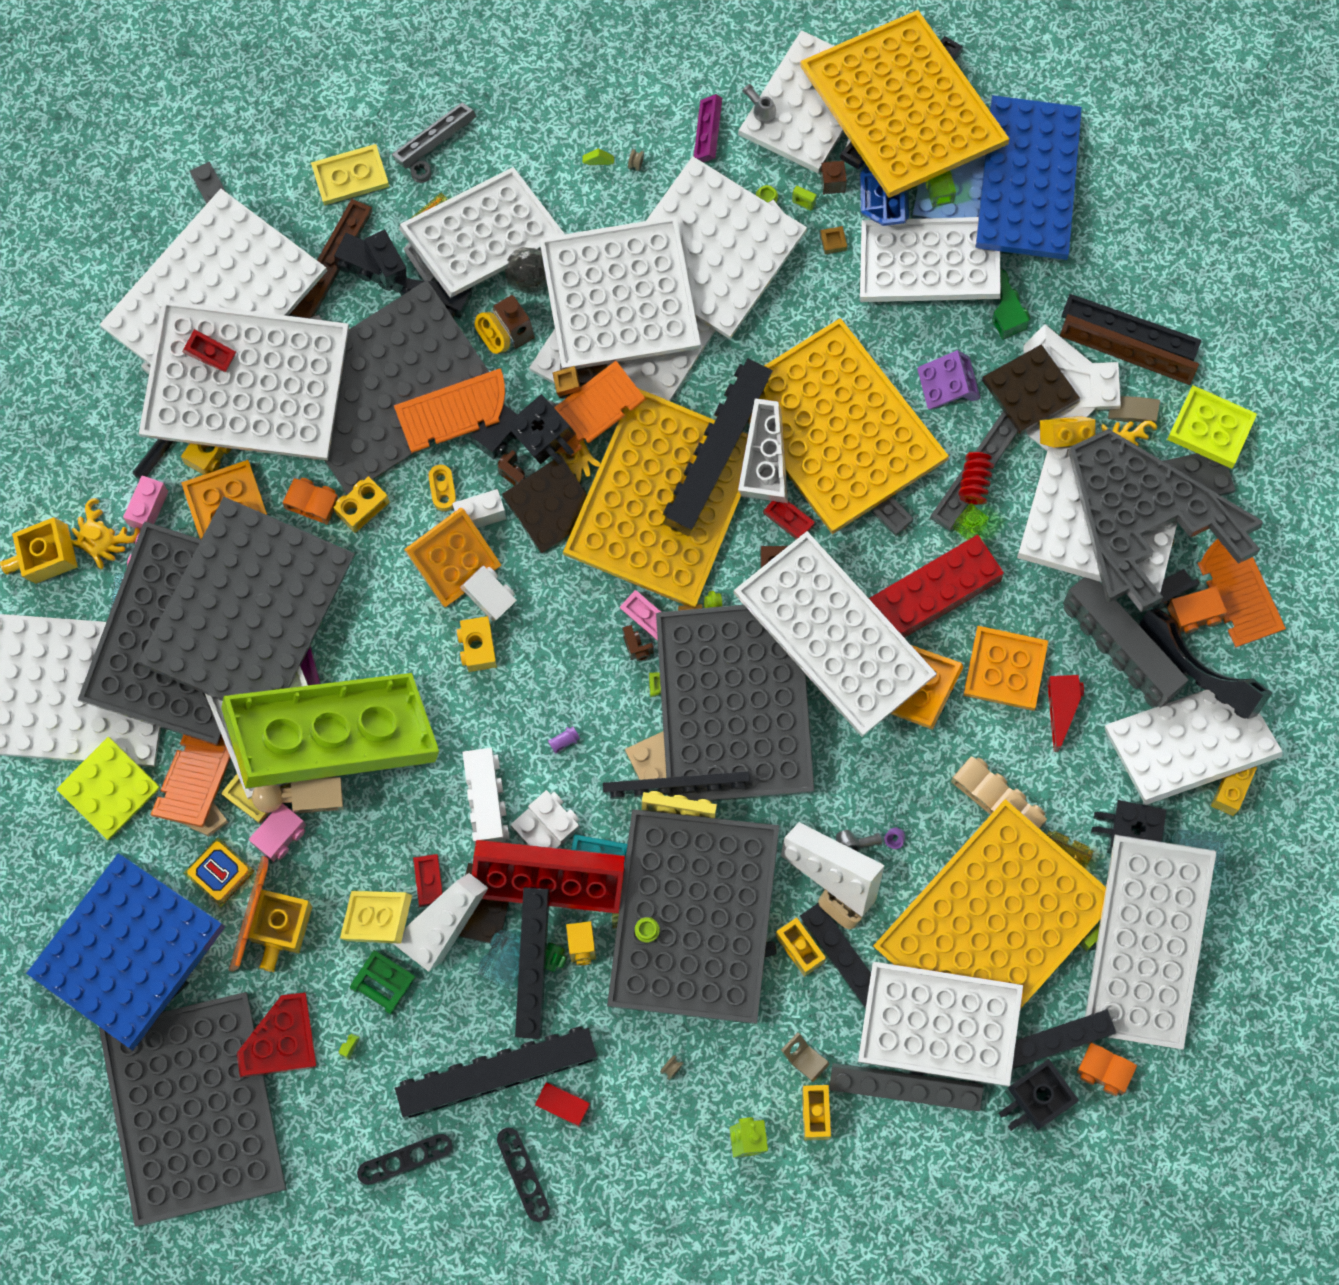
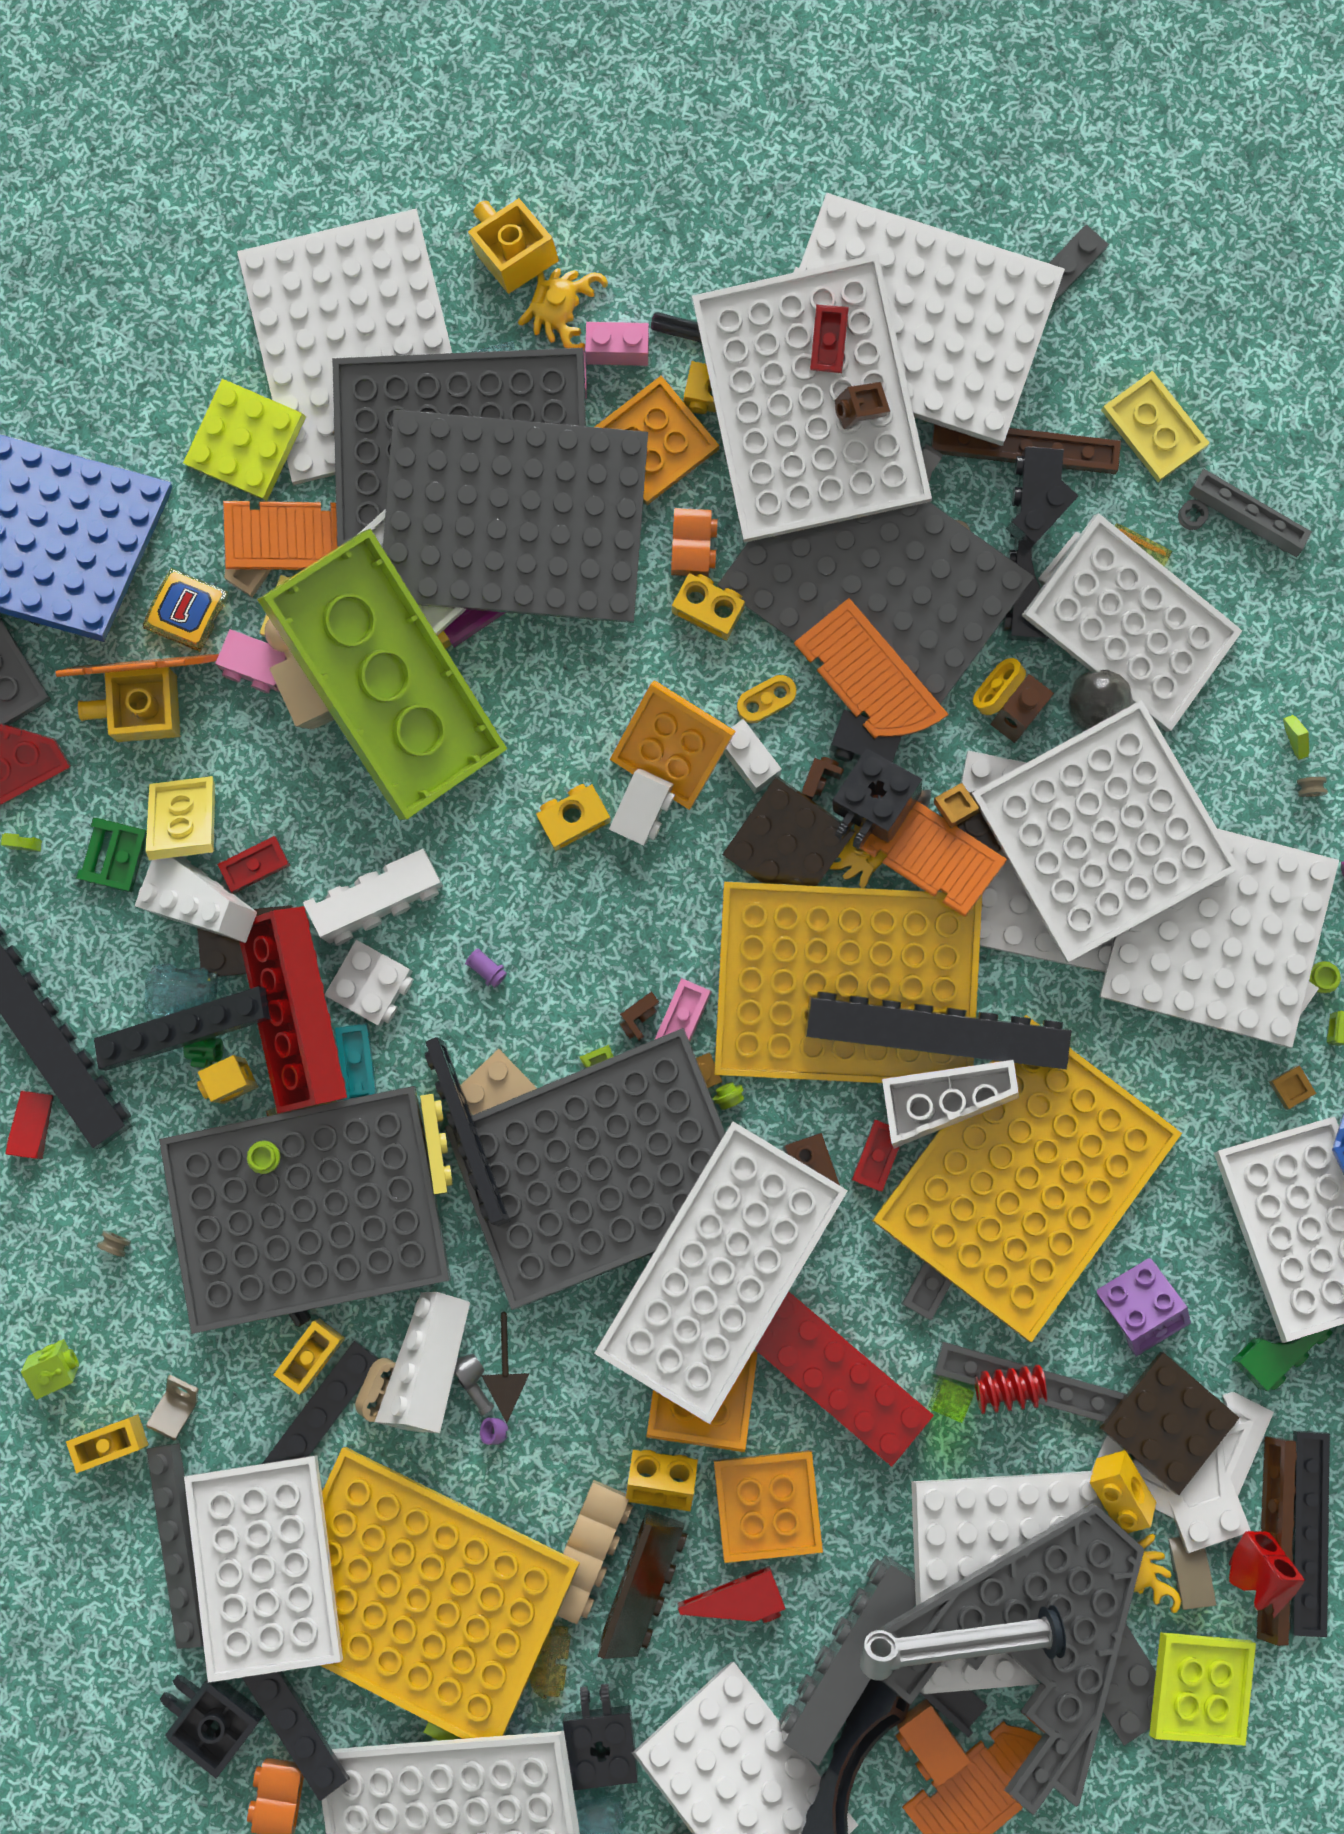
camera: 70 degrees right, 10 degrees up
(265, 345) = (861, 404): none -> reddish brown bracket
(866, 823) = (505, 1387): none -> dark brown piece
(965, 730) = (660, 1487): none -> yellow brick
(1031, 767) = (641, 1586): none -> dark brown slope
(1123, 597) = (1044, 1633): none -> light grey piece
(1141, 360) = (1264, 1567): none -> red piece

